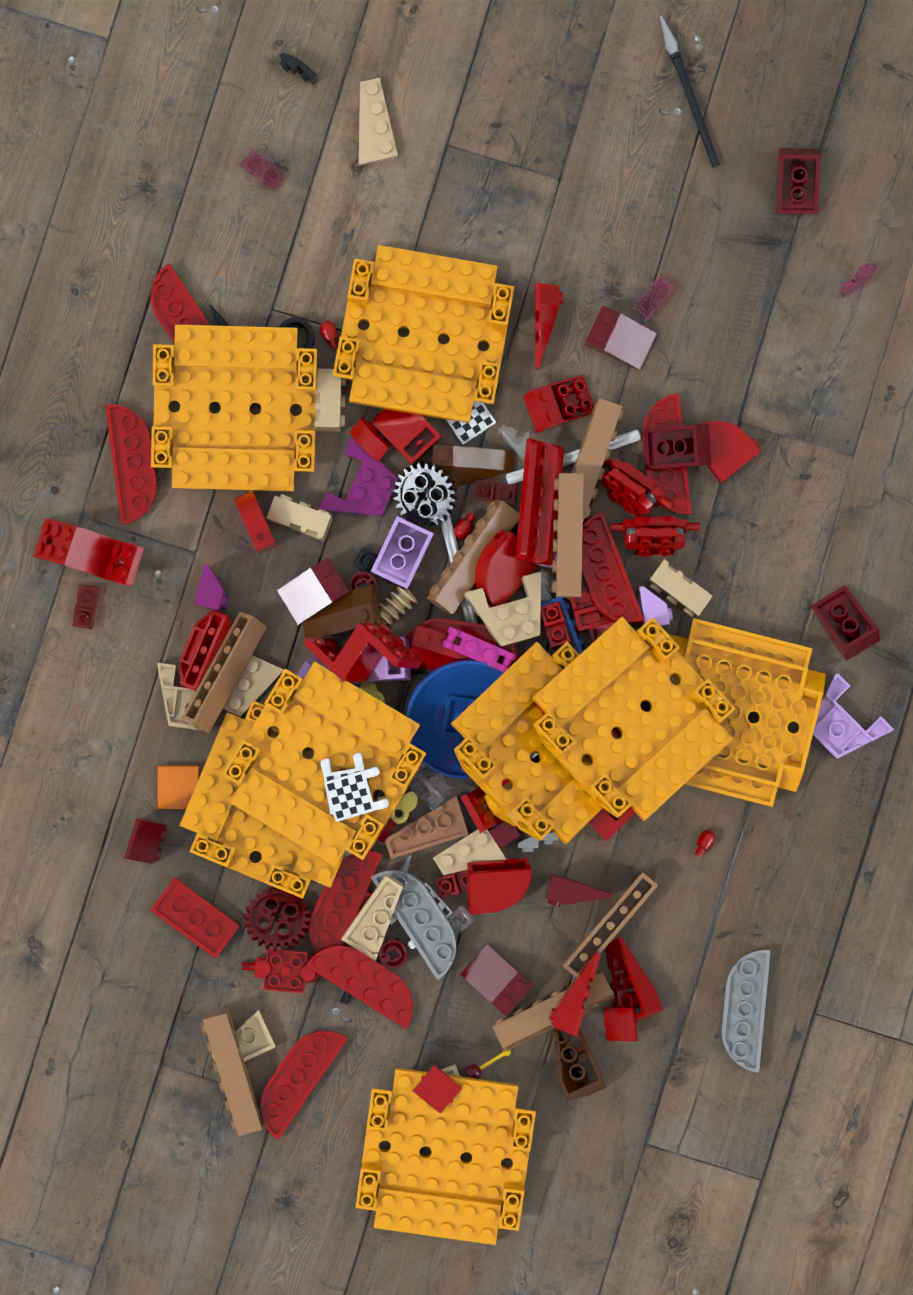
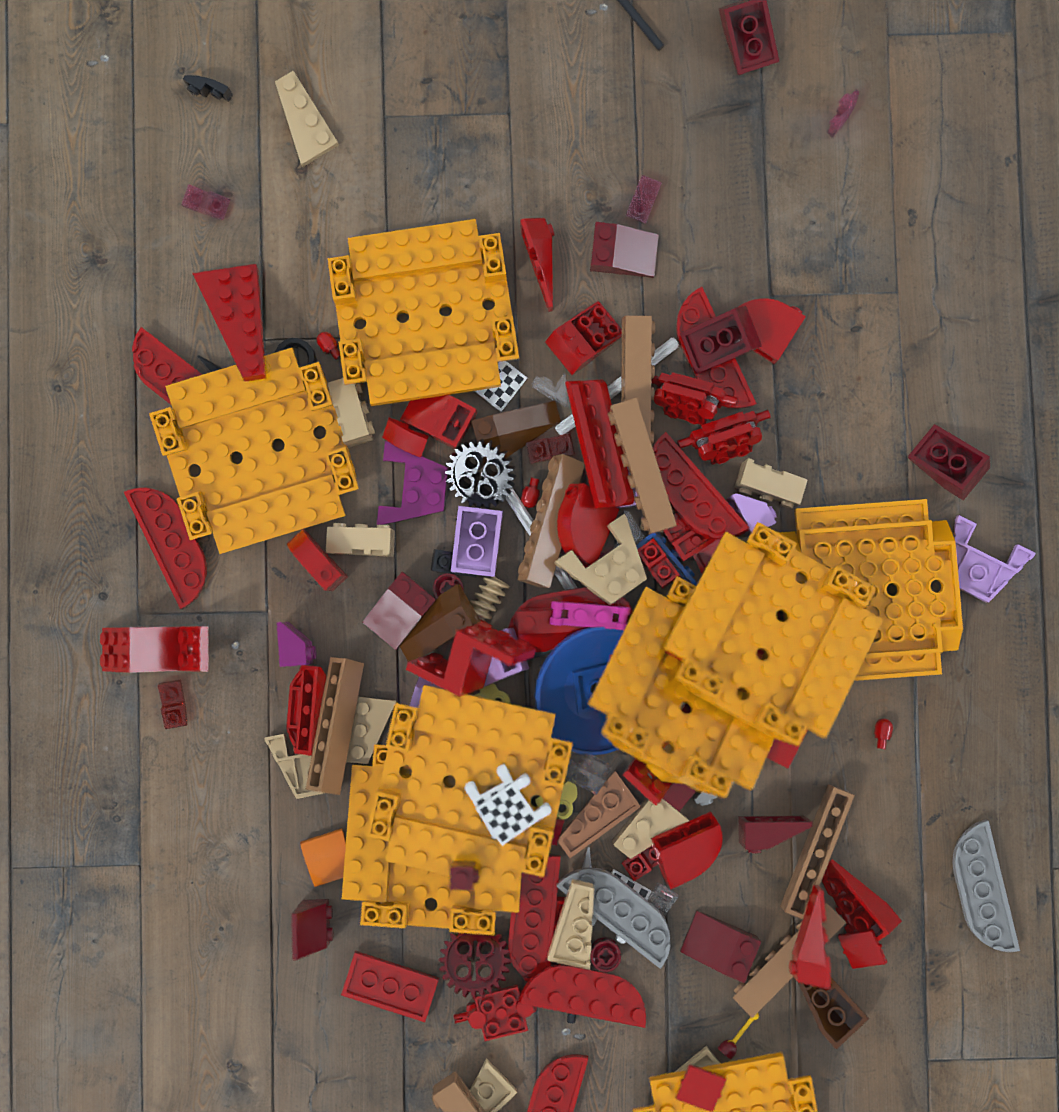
camera: 20 degrees left, 0 degrees up
(258, 272) = (236, 308): none -> red wing
(294, 835) = (463, 875): none -> dark red brick

